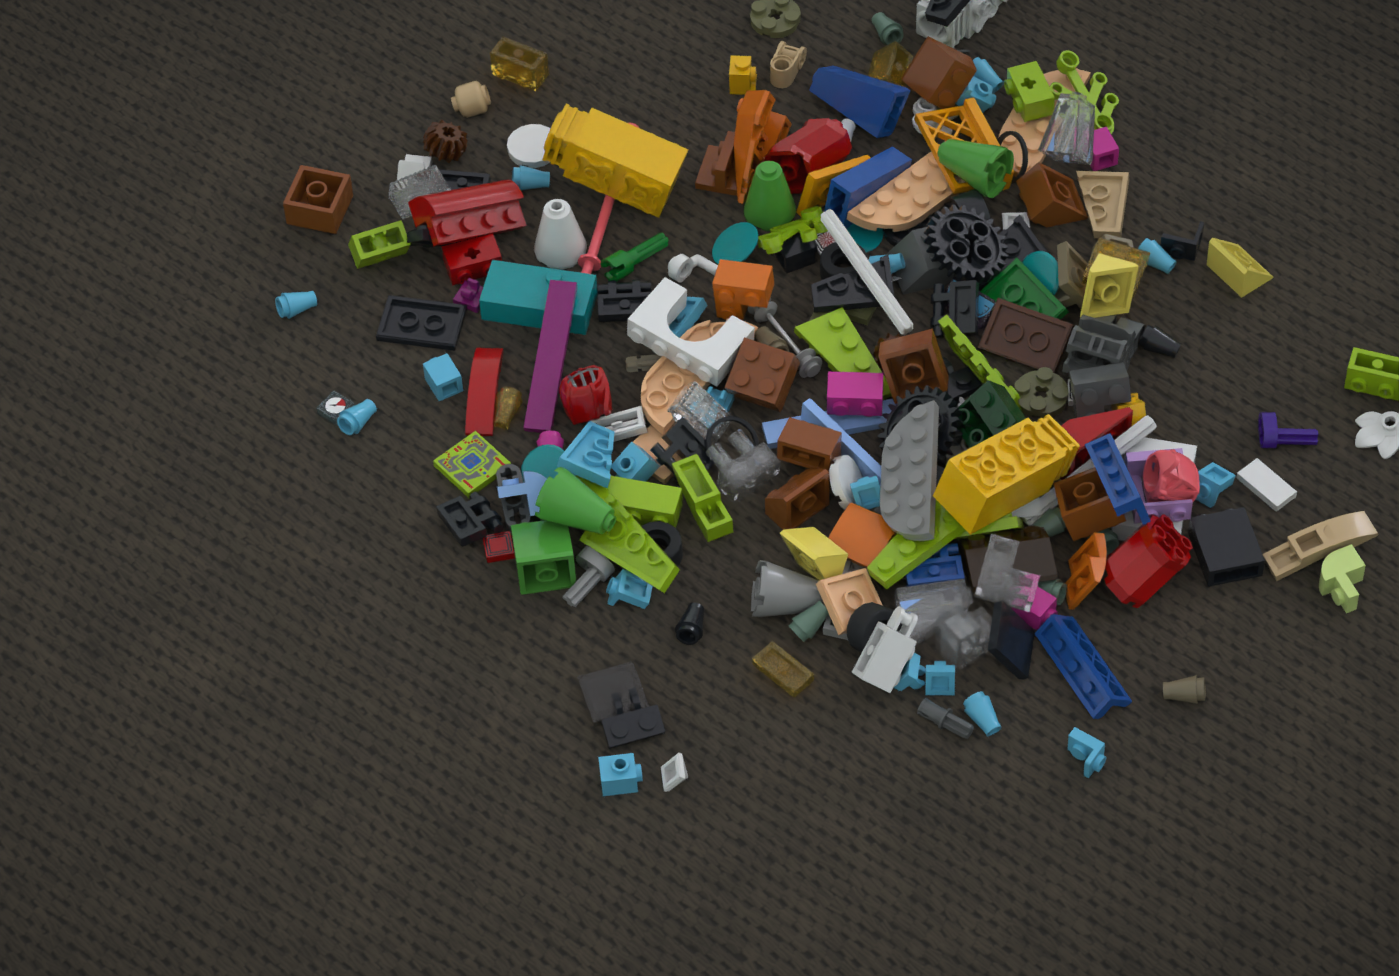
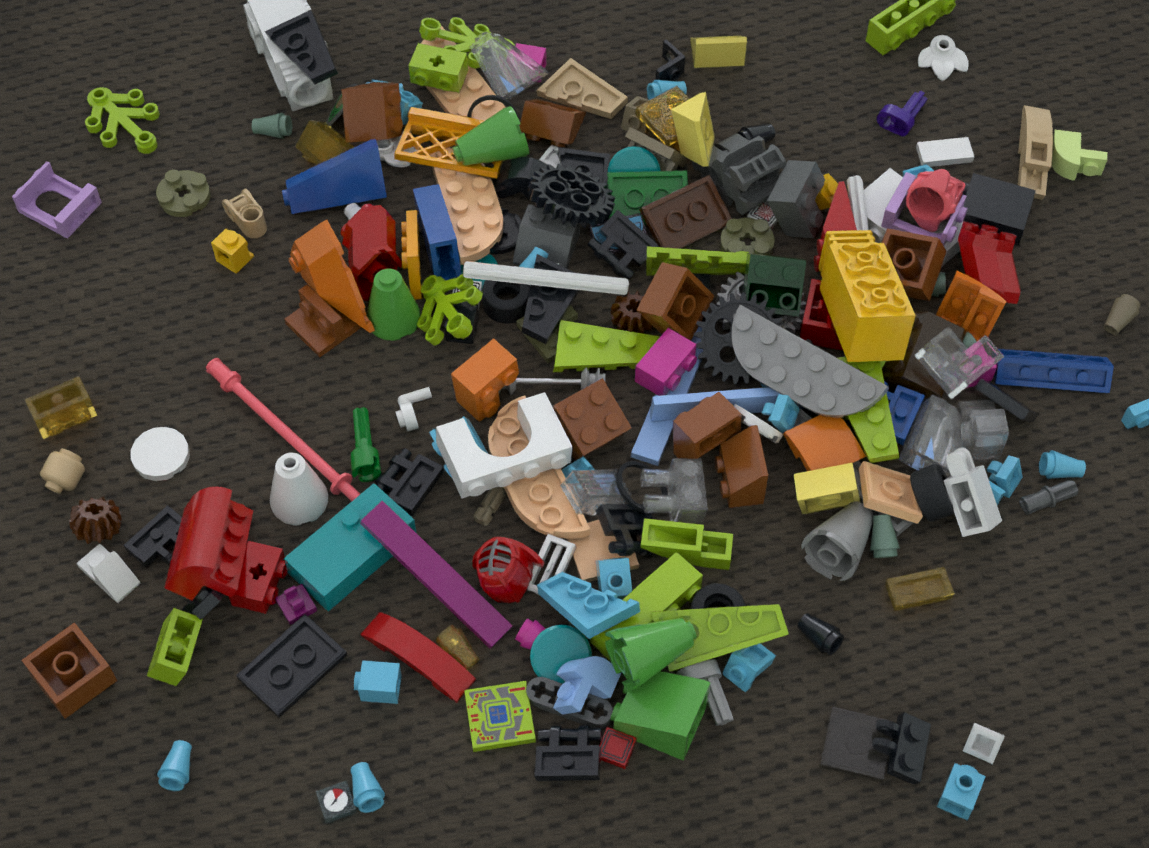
camera: 60 degrees left, 5 degrees up
(419, 184) = (143, 575): clear brick -> none
(530, 178) = (198, 476): medium azure cone -> none
(614, 158) = (257, 390): yellow piece -> none
(735, 243) = (417, 360): teal piece -> none
(769, 338) = (554, 392): dark tan cone -> none
(1116, 477) = (918, 225): blue fence -> none

